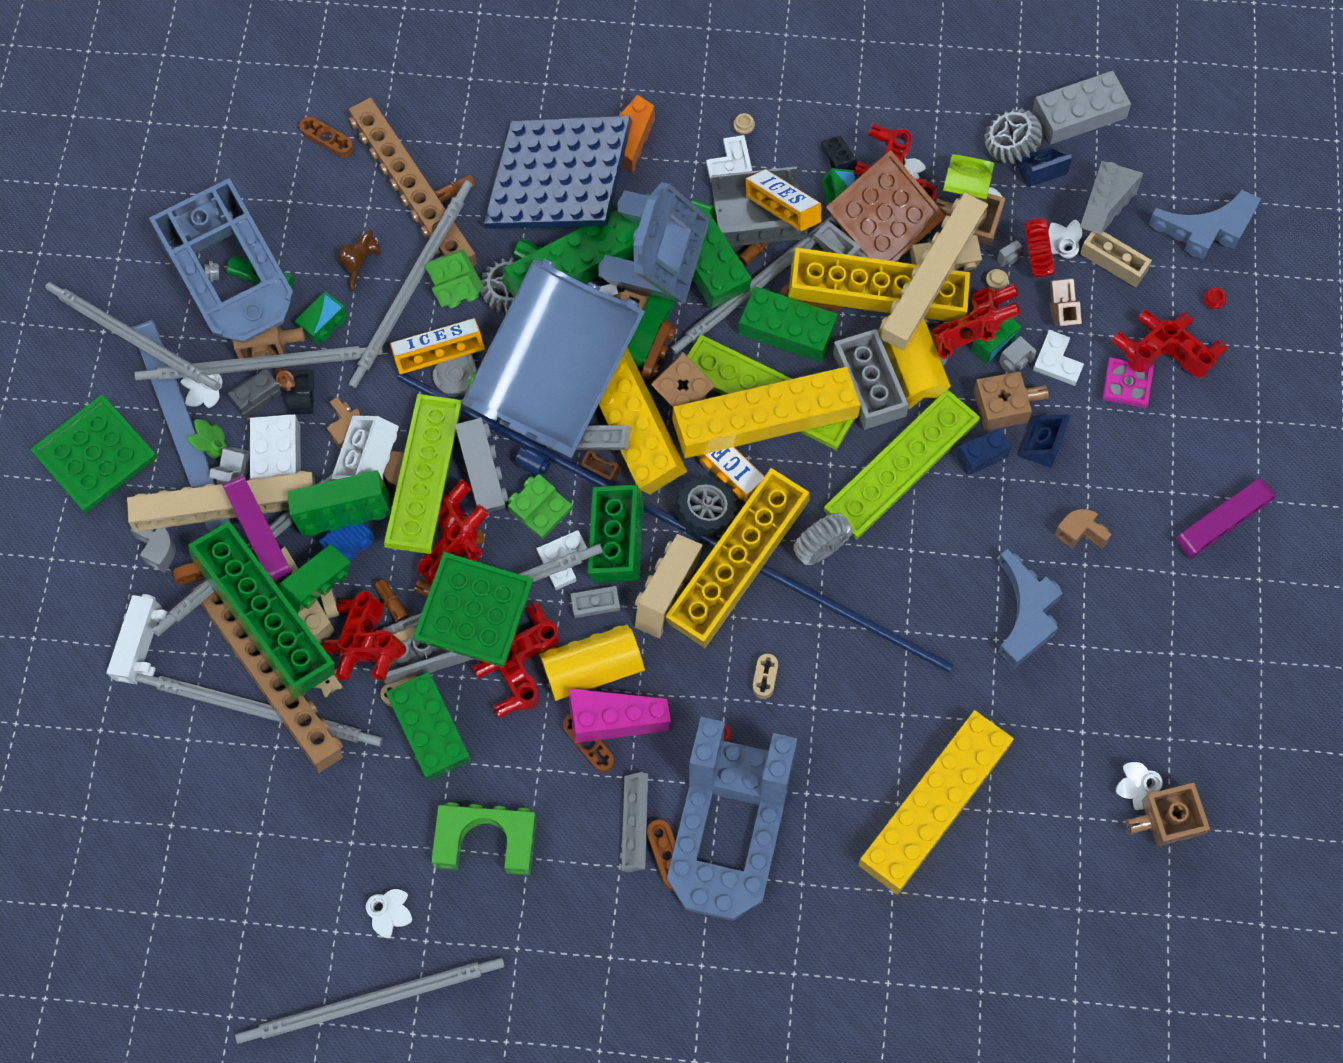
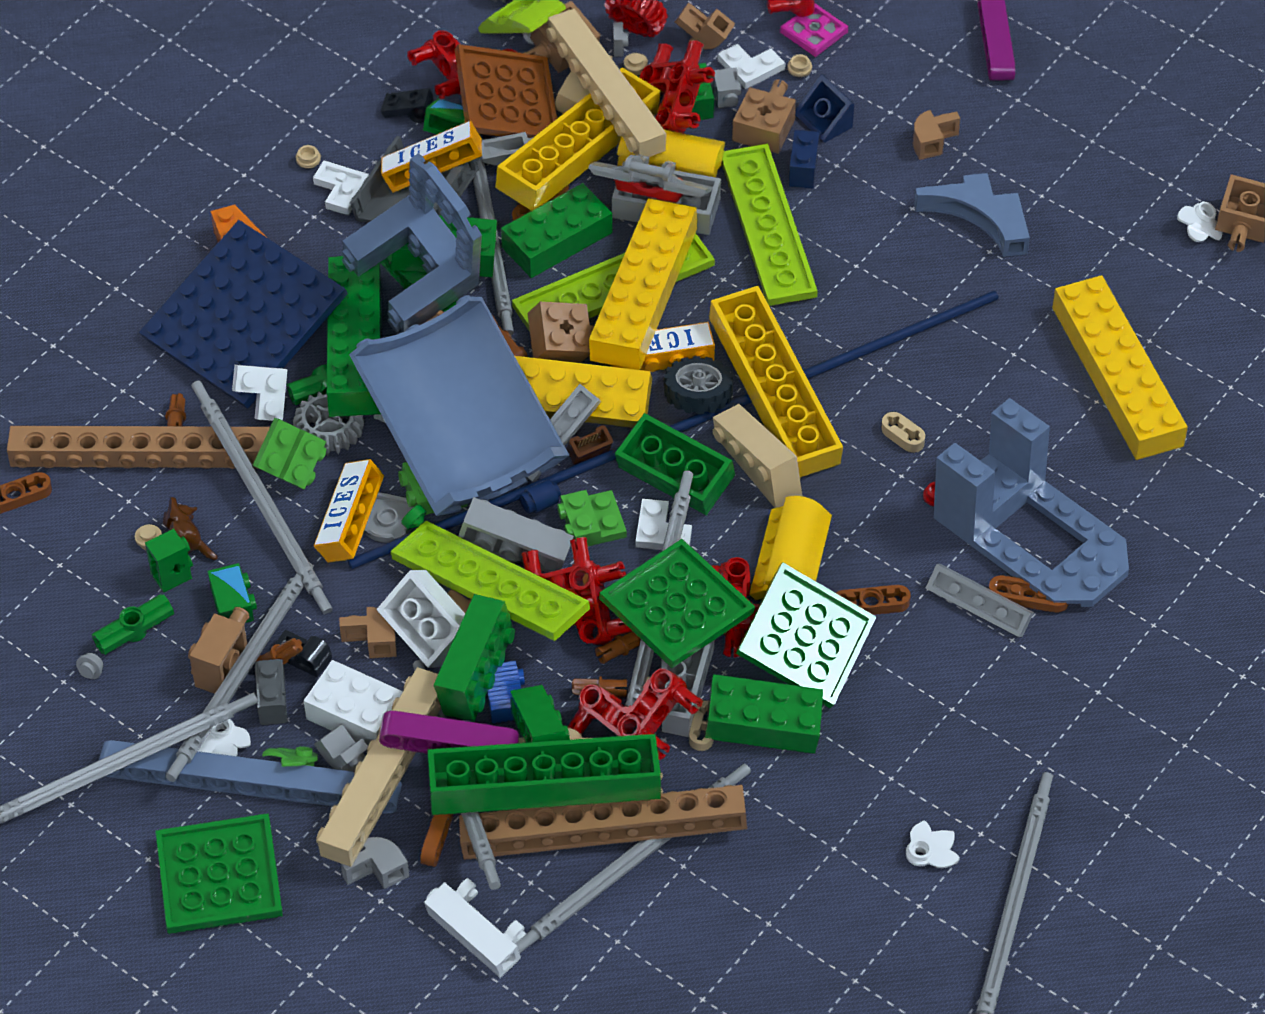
camera: 60 degrees left, 15 degrees down
(203, 222) = (59, 610): sand blue bracket -> none
(319, 262) = (169, 560): none -> green brick
(342, 237) = (145, 534): none -> tan plate
(456, 391) = (414, 517): none -> green tile
(456, 821) = (918, 696): bright green arch -> none
(505, 225) = (269, 386): none -> white plate
(512, 715) = (806, 634): none -> plate
(595, 602) = (729, 522): light grey plate -> none
(615, 715) = (862, 558): dark pink wedge -> none
(822, 539) = (804, 311): light grey gear -> none
(861, 357) = (637, 171): none -> light grey piece
(1082, 394) = (799, 66): none -> tan plate

